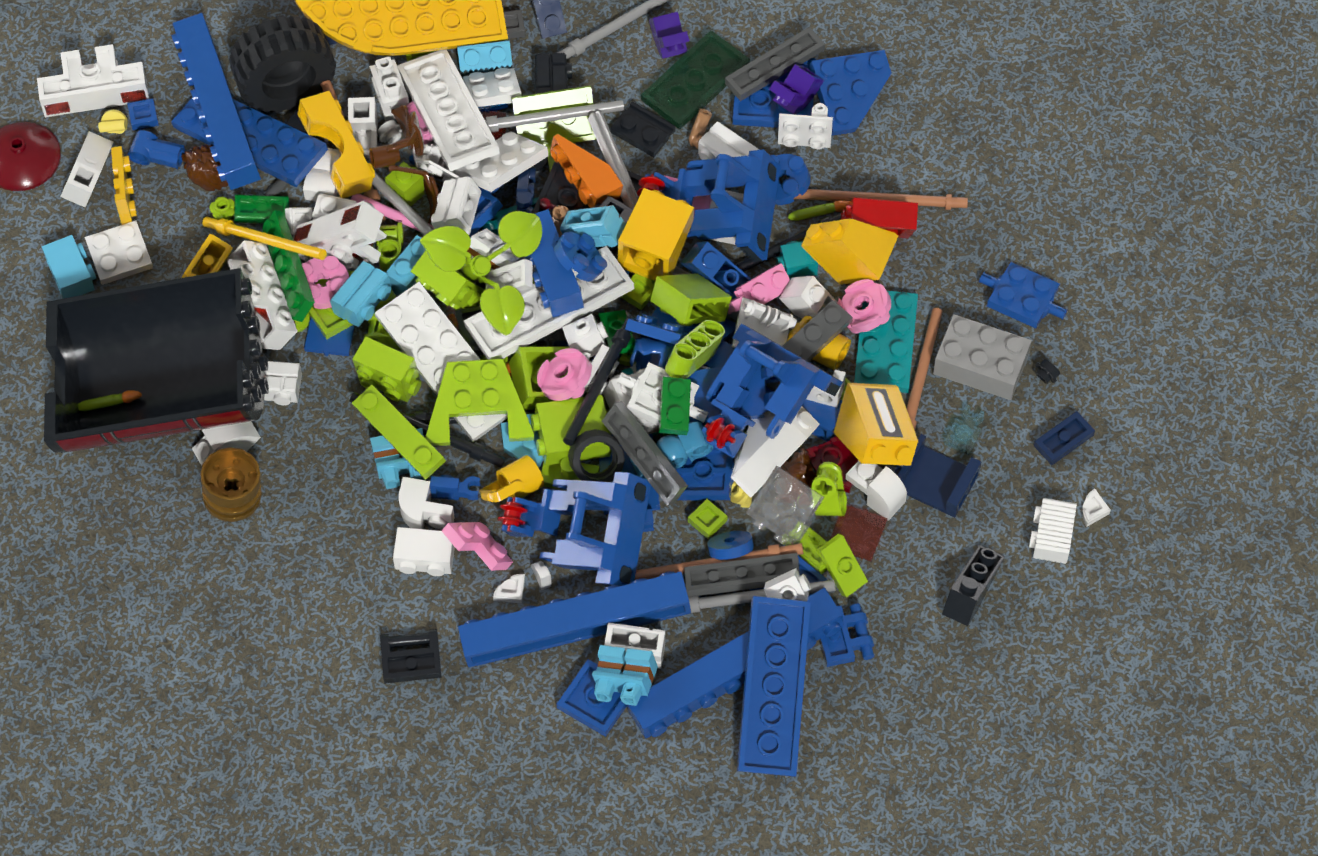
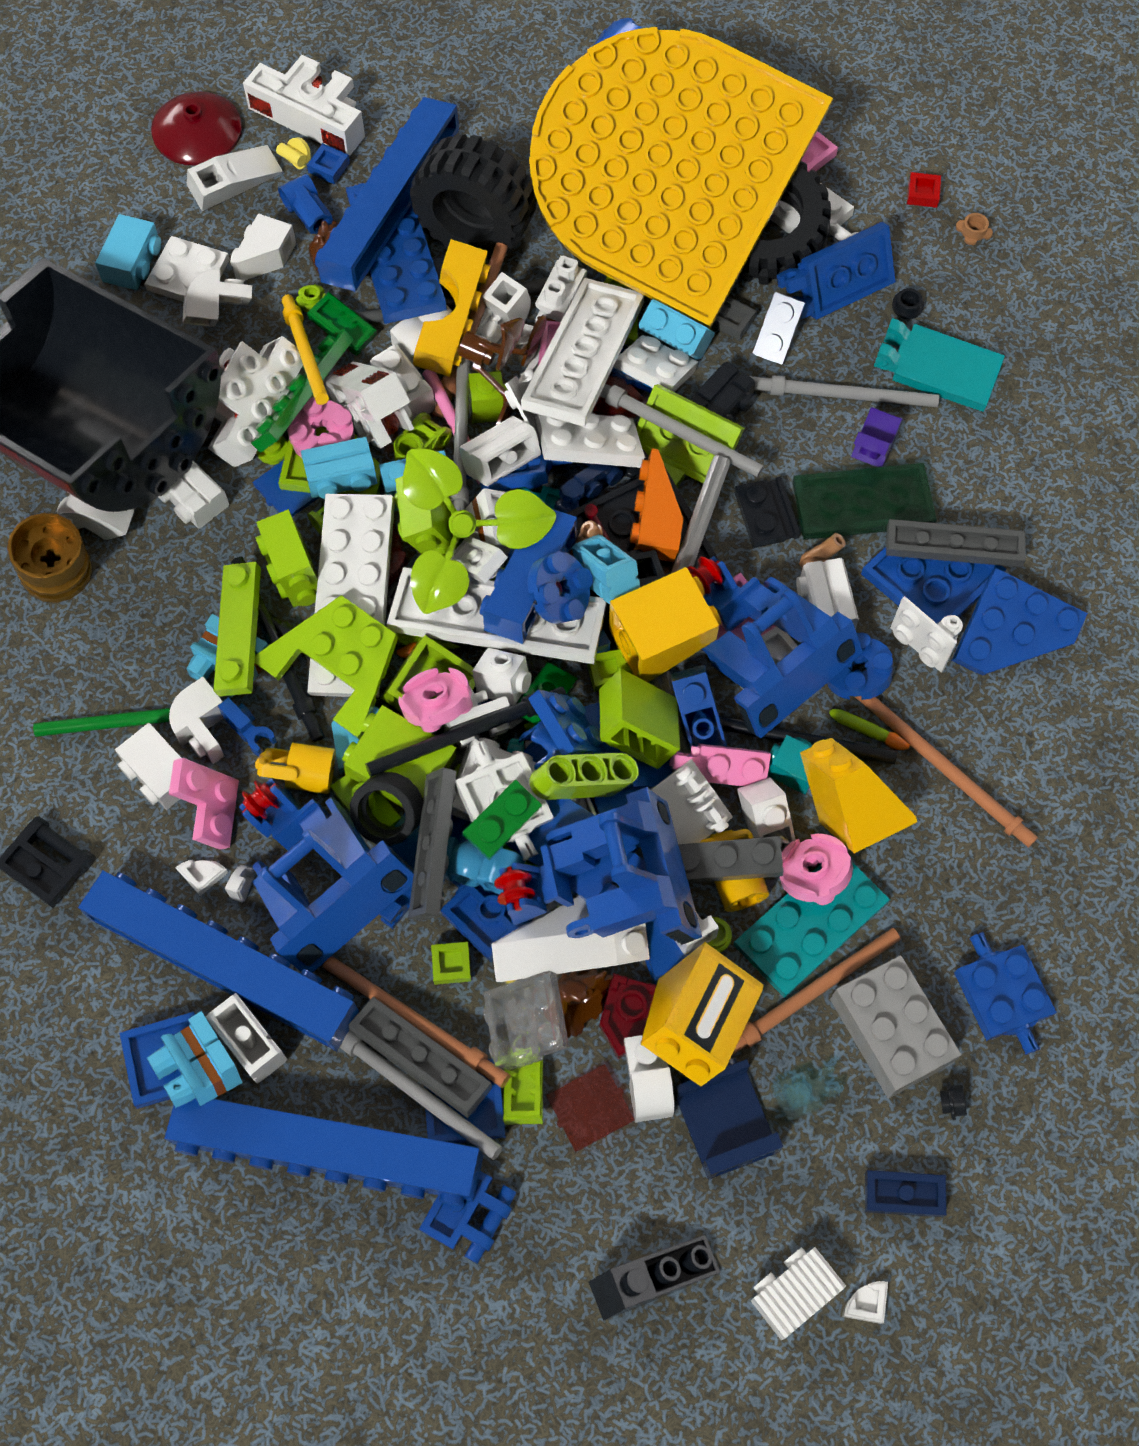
camera: 40 degrees right, 5 degrees up
(111, 400) = (51, 404): lime piece -> none
(123, 185) = (230, 221): yellow wing -> none
(156, 254) = (206, 293): none -> white brick
(159, 197) = (264, 248): none -> white slope
(209, 257) = (246, 327): yellow brick -> none
(297, 216) = (362, 353): white tile -> none
(361, 554) = (101, 722): none -> green bar
(730, 545) = (442, 1012): blue piece -> none
(773, 686) = (327, 1212): blue plate -> none
(788, 586) = (436, 1118): white brick -> none
(797, 89) = (952, 586): dark purple brick -> none
(830, 485) = (593, 1041): lime piece -> none
(842, 565) = (531, 1134): lime plate -> none
(885, 214) = (916, 786): red window -> none

